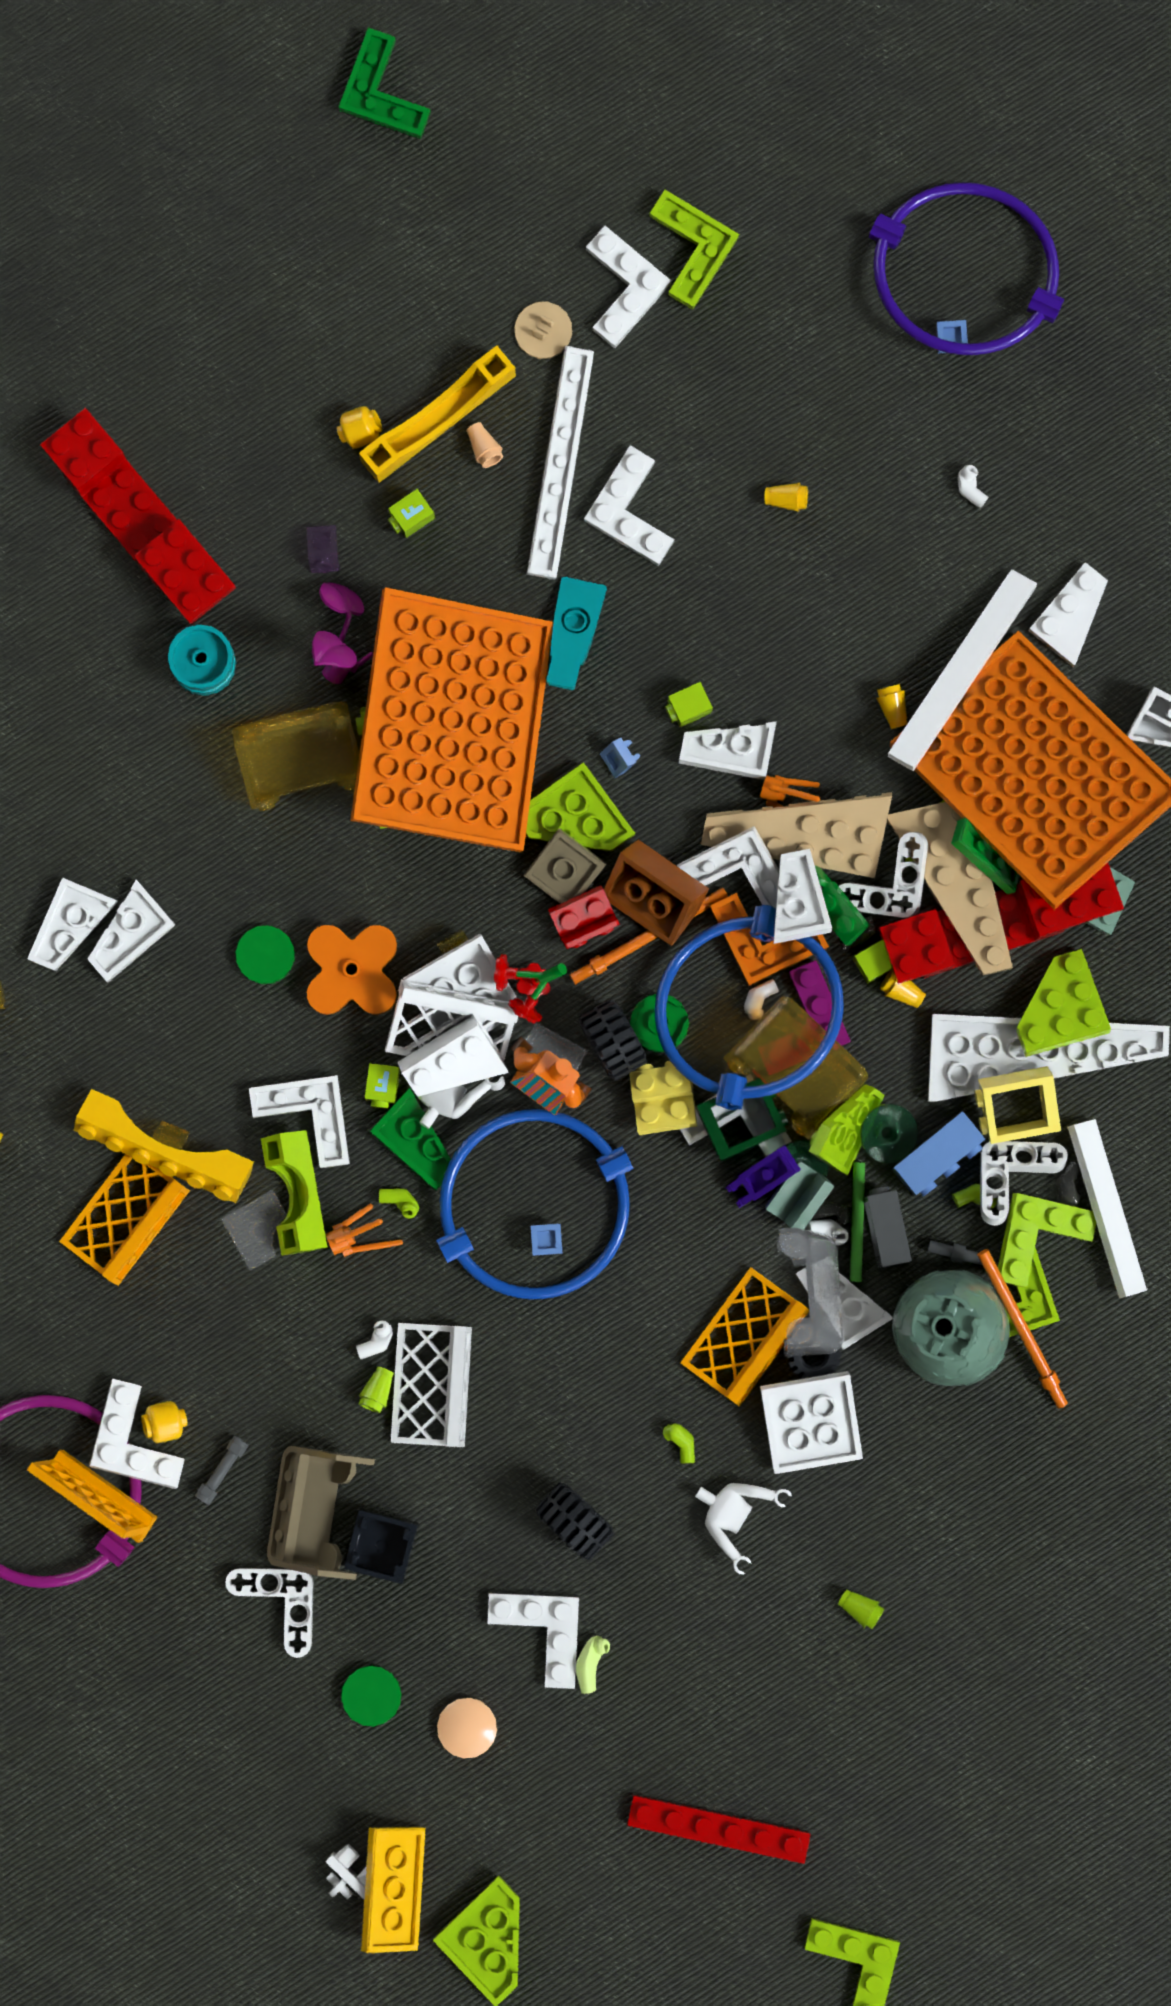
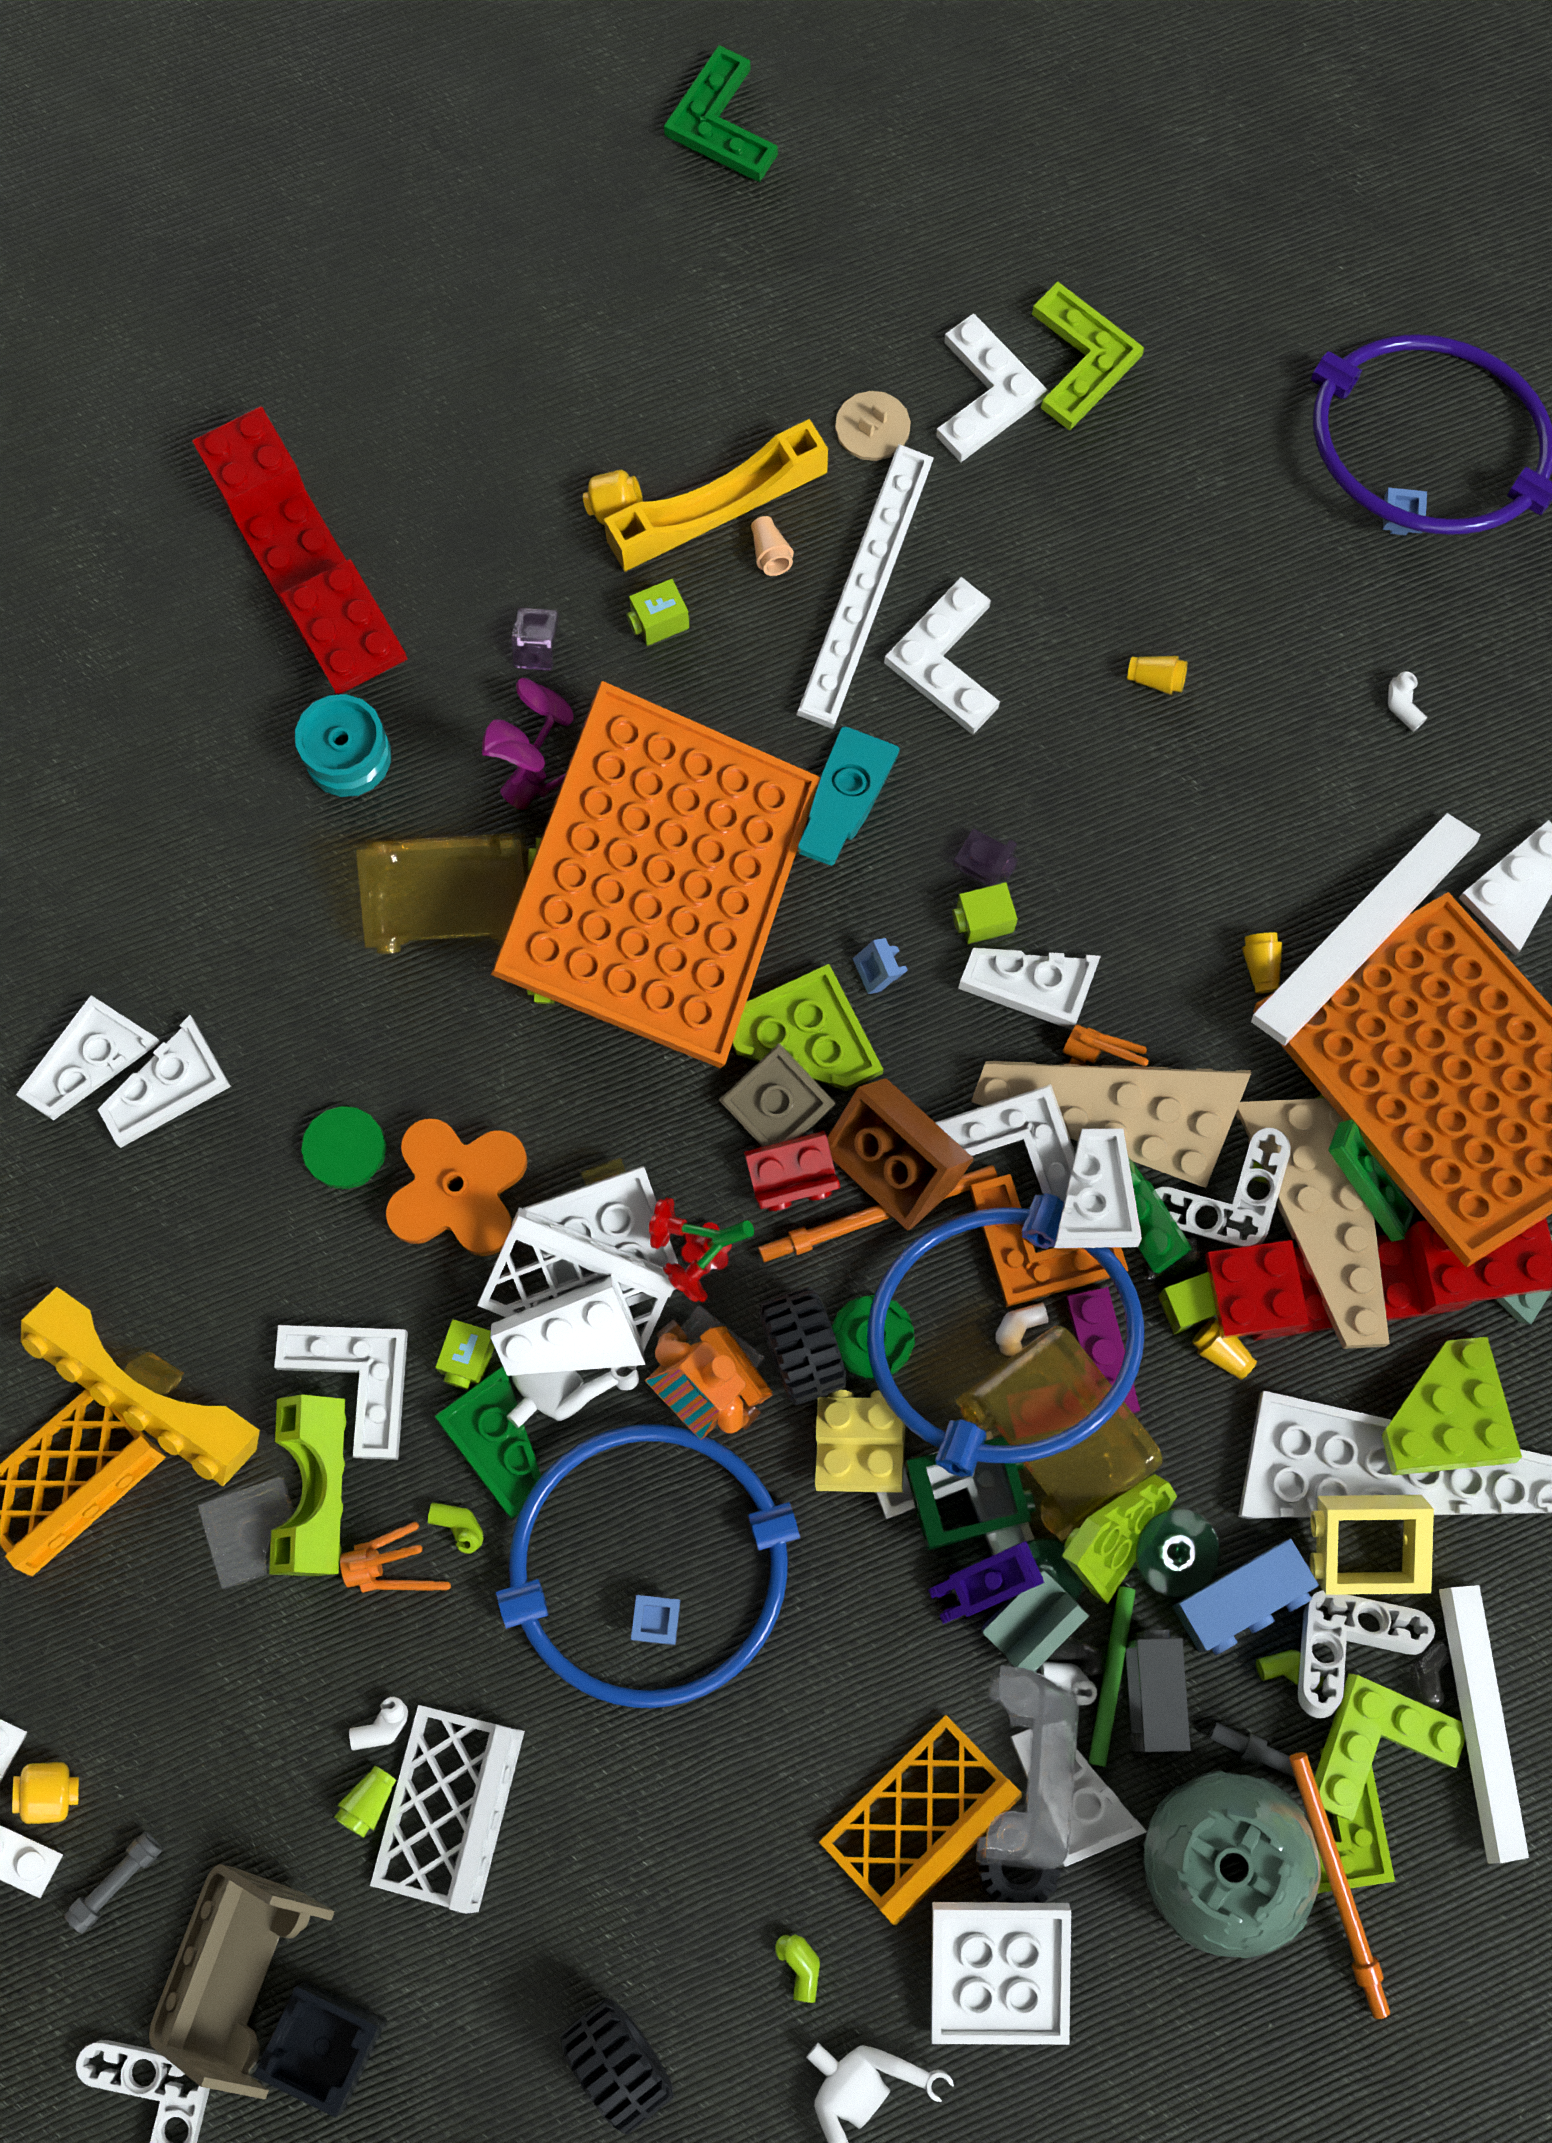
camera: 10 degrees right, 10 degrees down
(563, 1050) = (724, 1343): none -> orange tile
(683, 661) = (986, 858): none -> clear purple bracket

